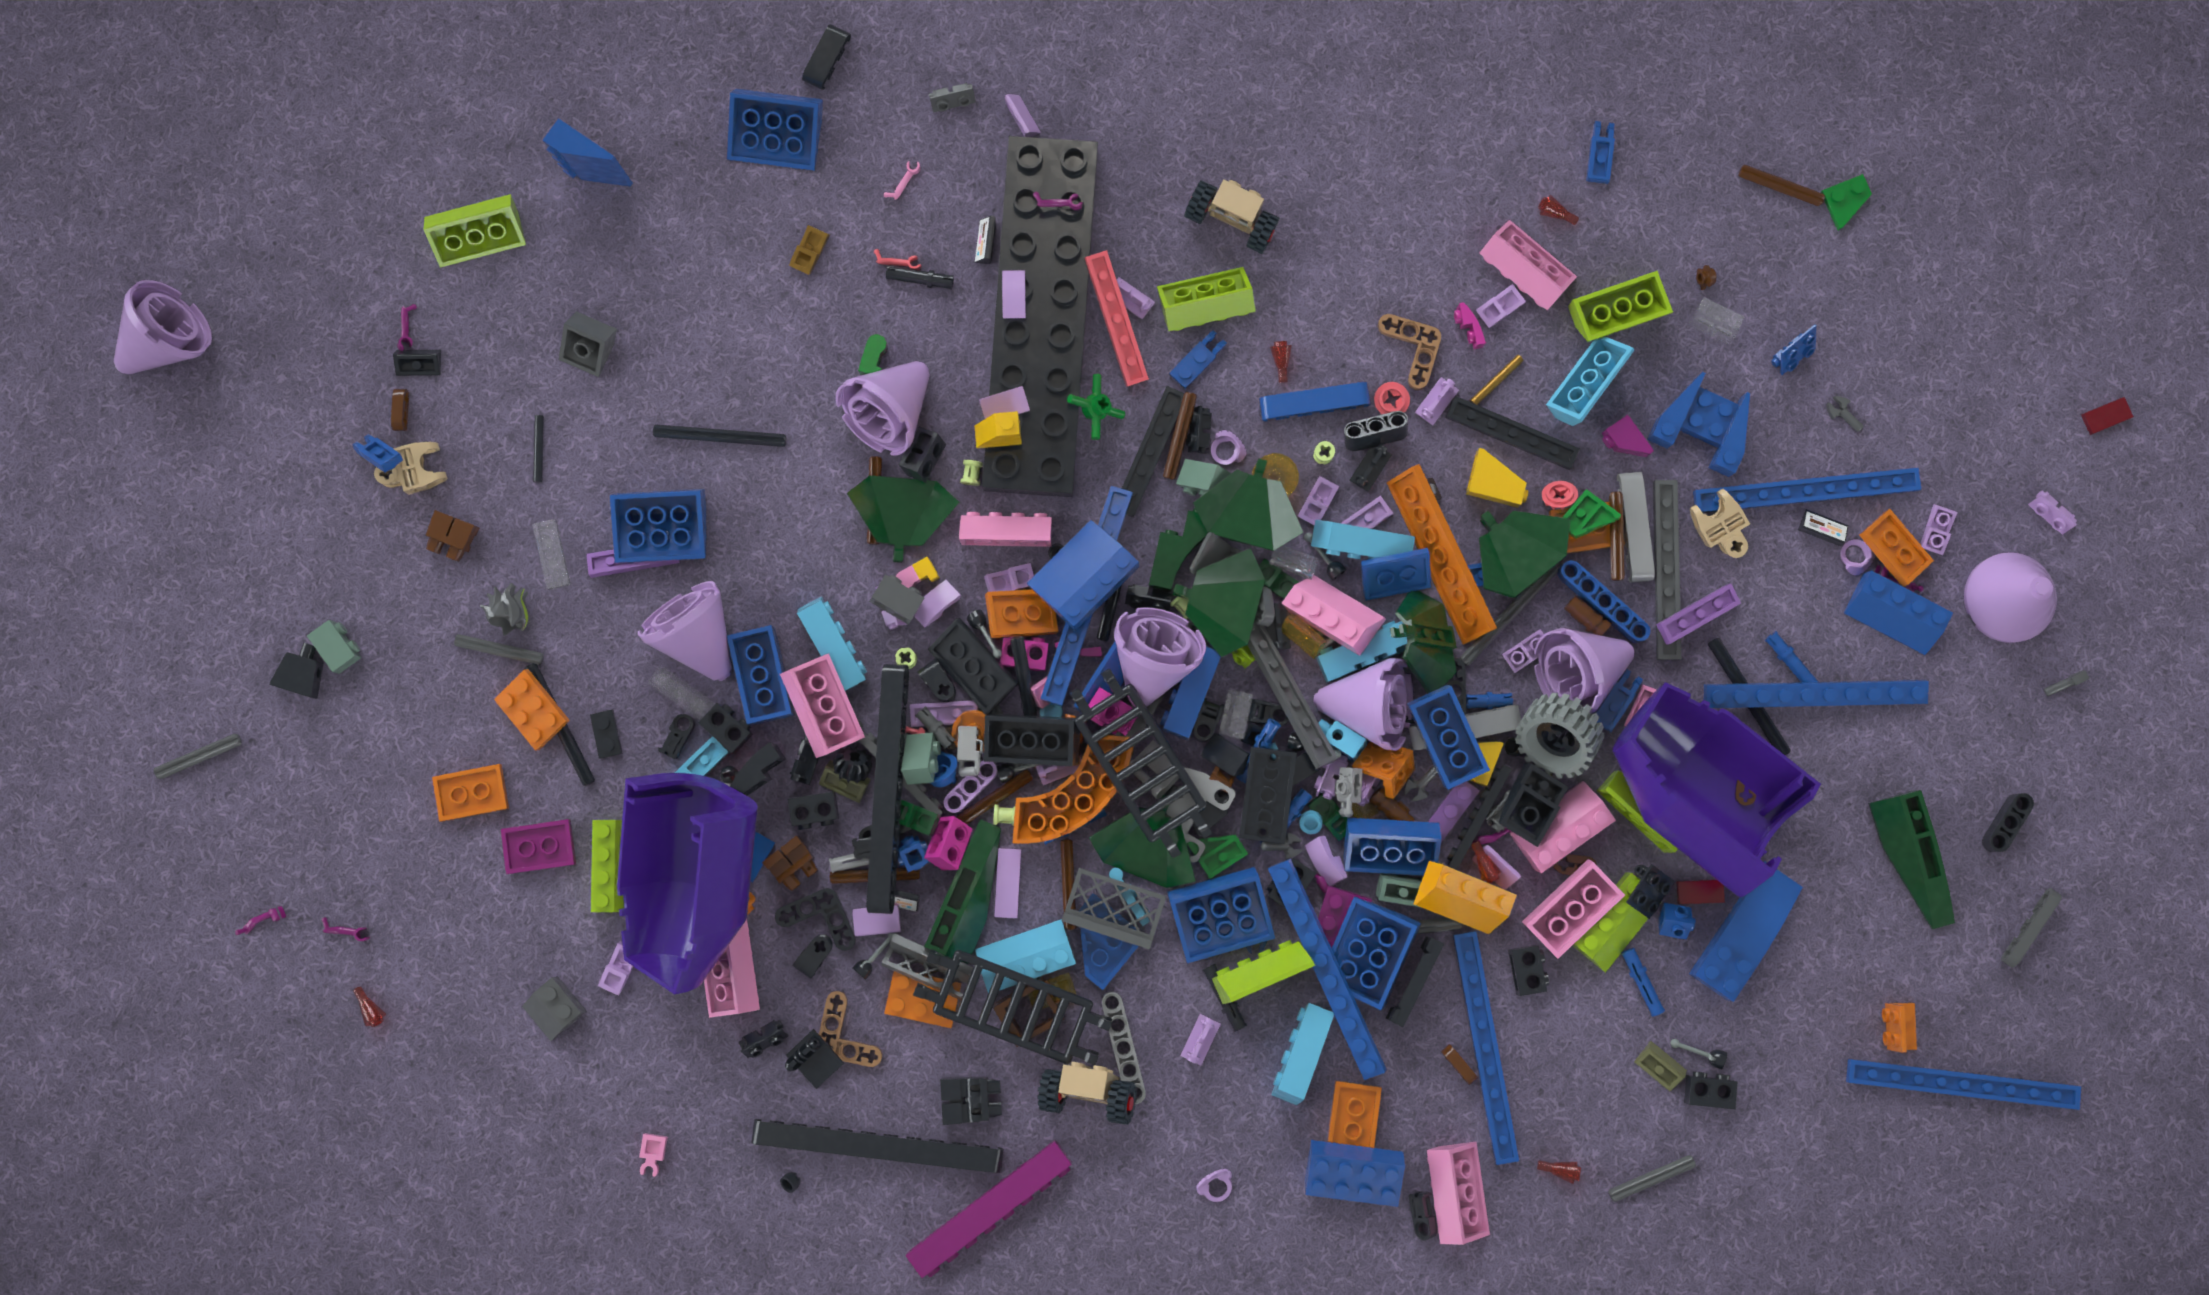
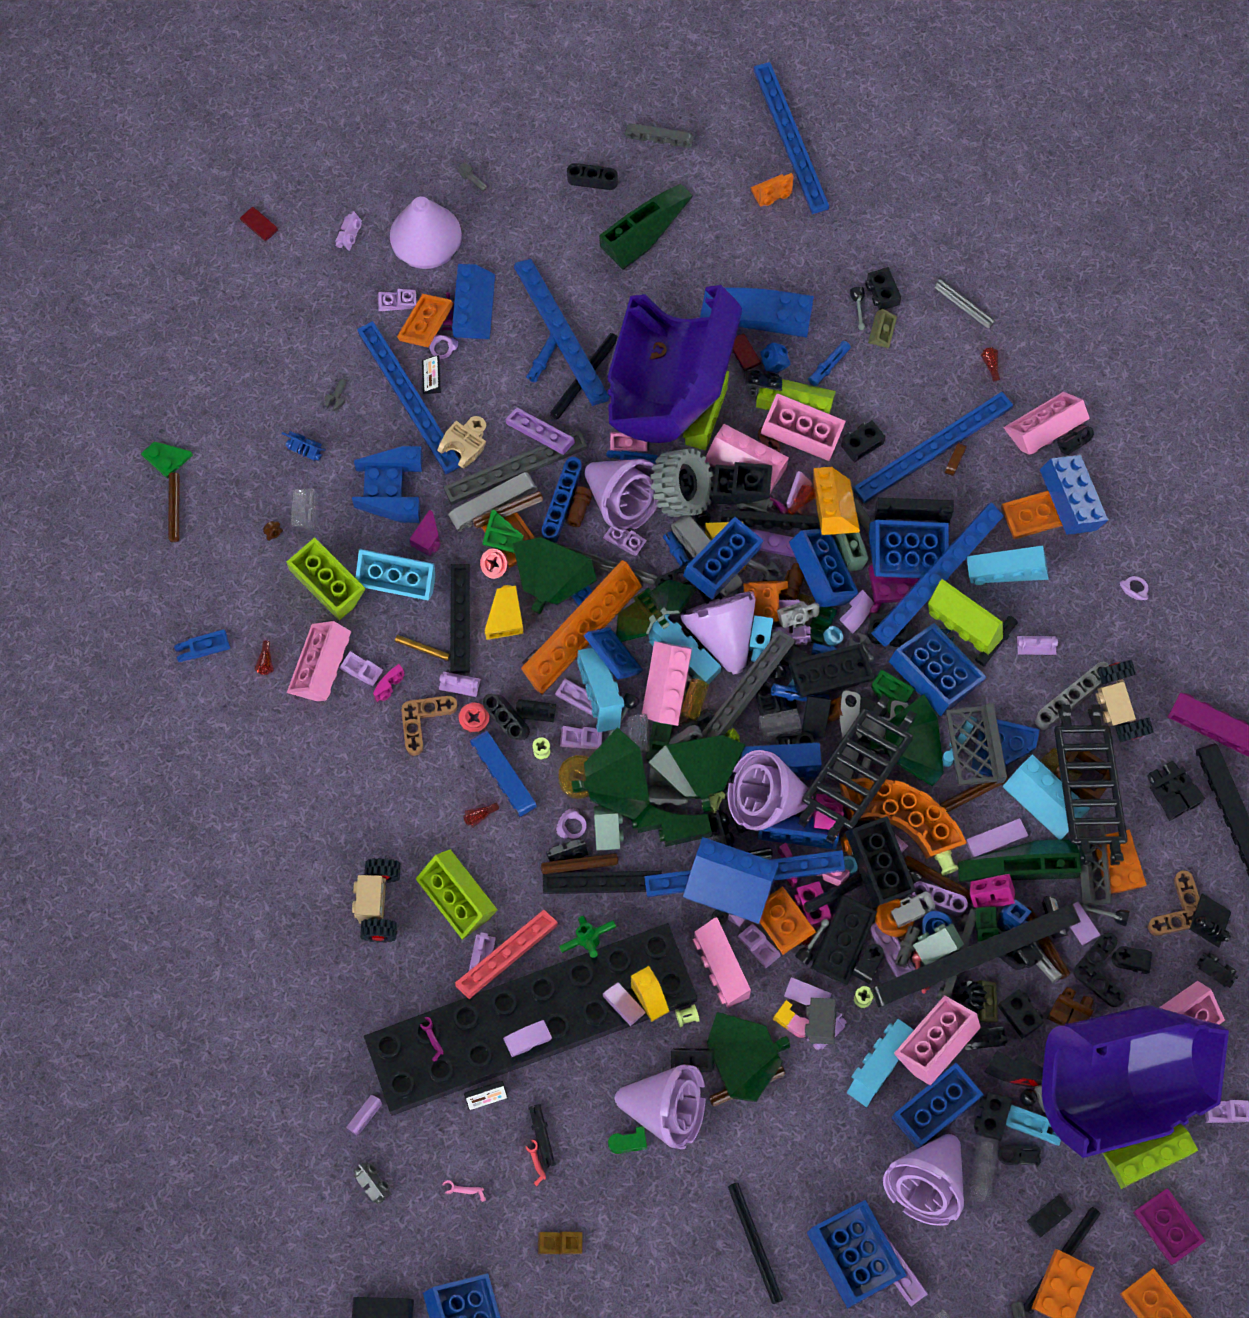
camera: 115 degrees left, 15 degrees down
(1196, 361) = (510, 879): blue hinge -> none

